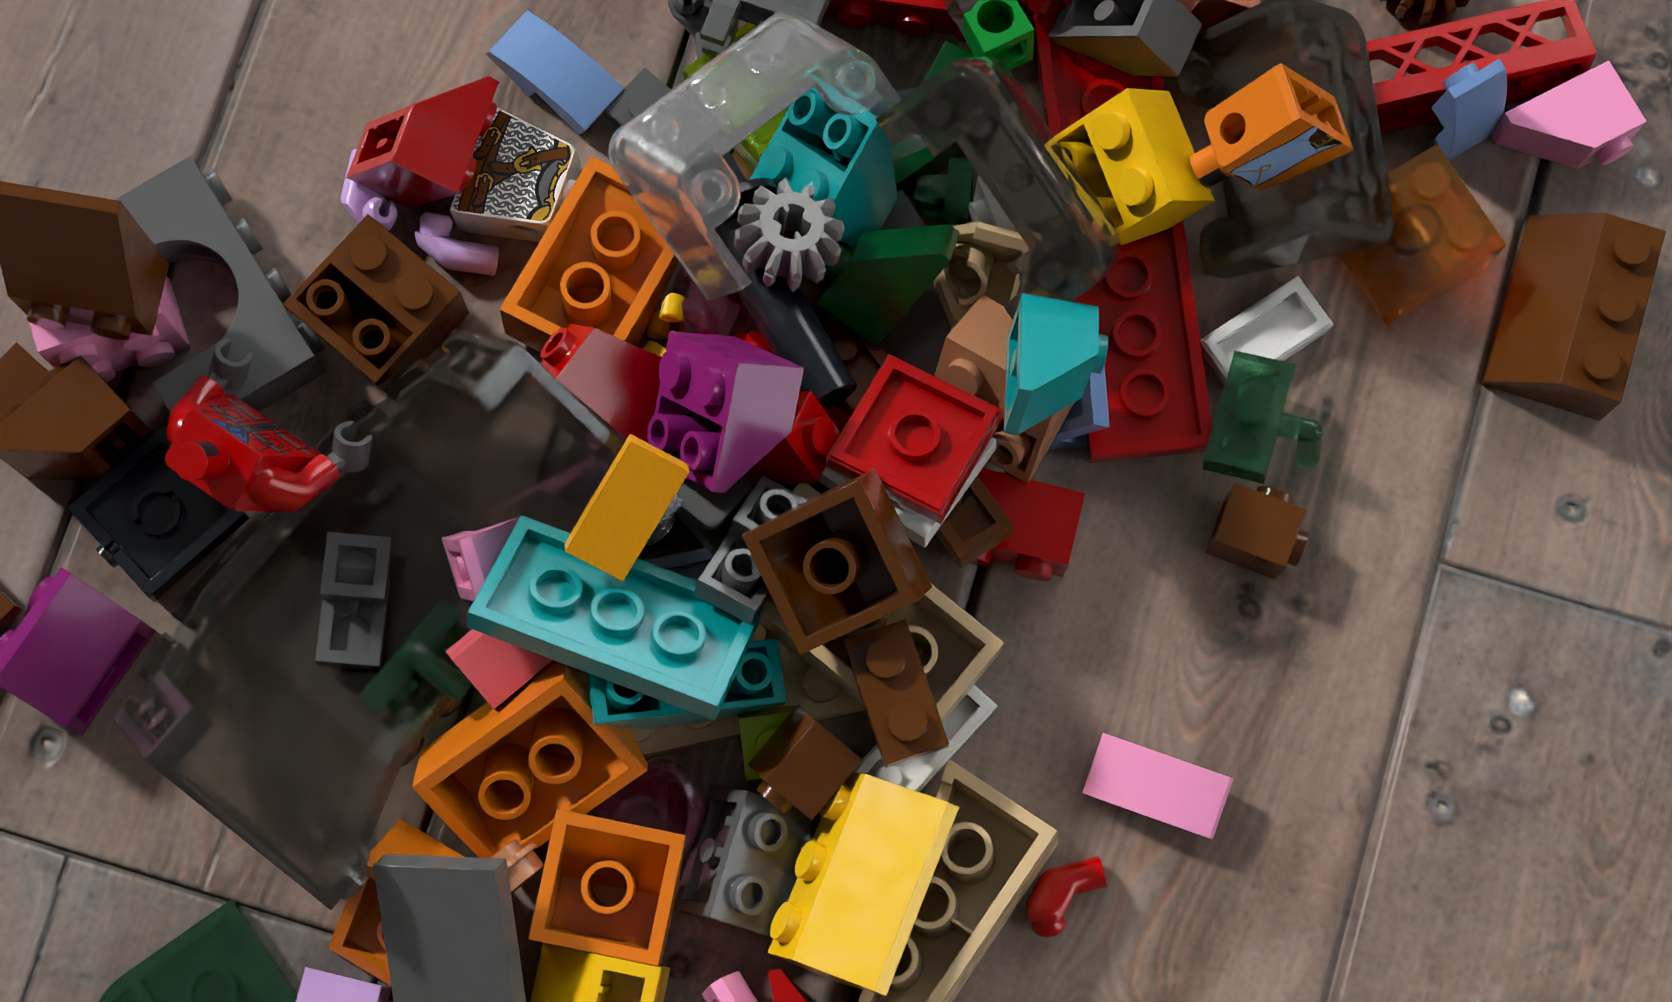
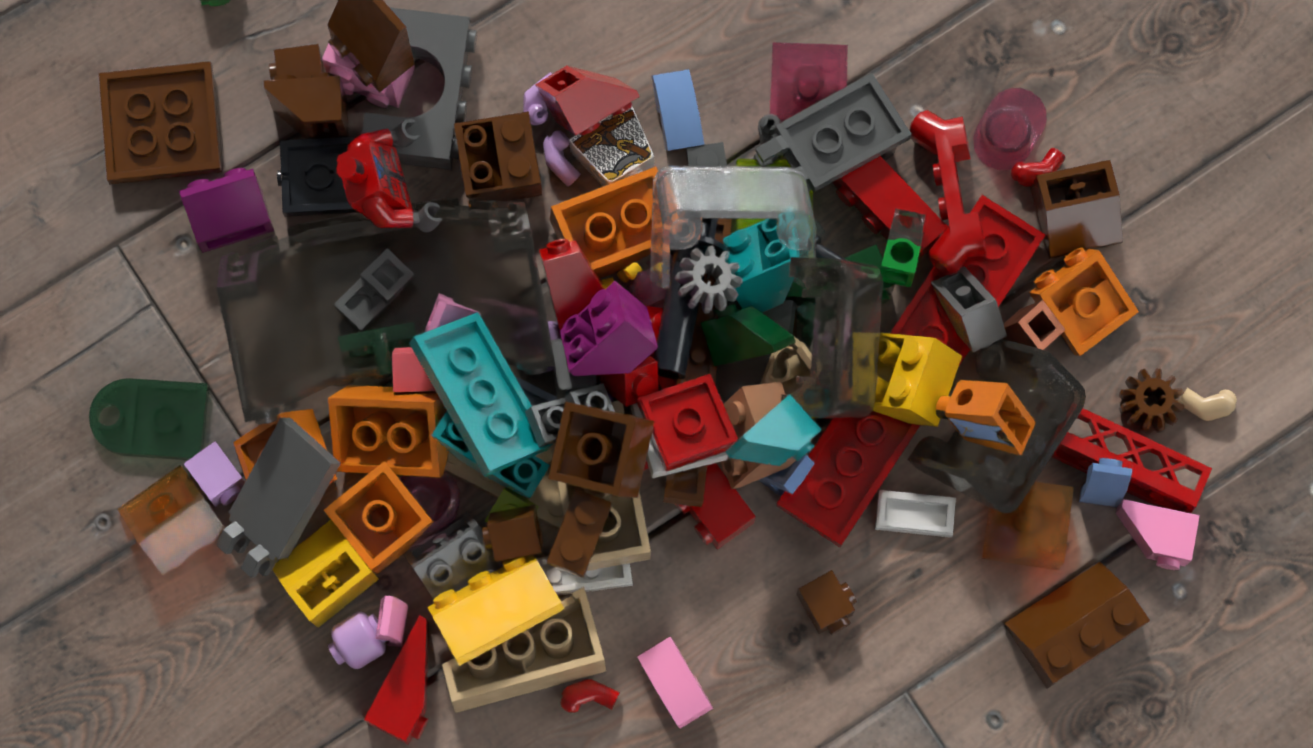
camera: 40 degrees right, 0 degrees up
(521, 863) = (347, 473): nougat plate -> none
(626, 507) = (524, 346): light orange tile -> none
(1254, 416) = (868, 547): clear green plate -> none

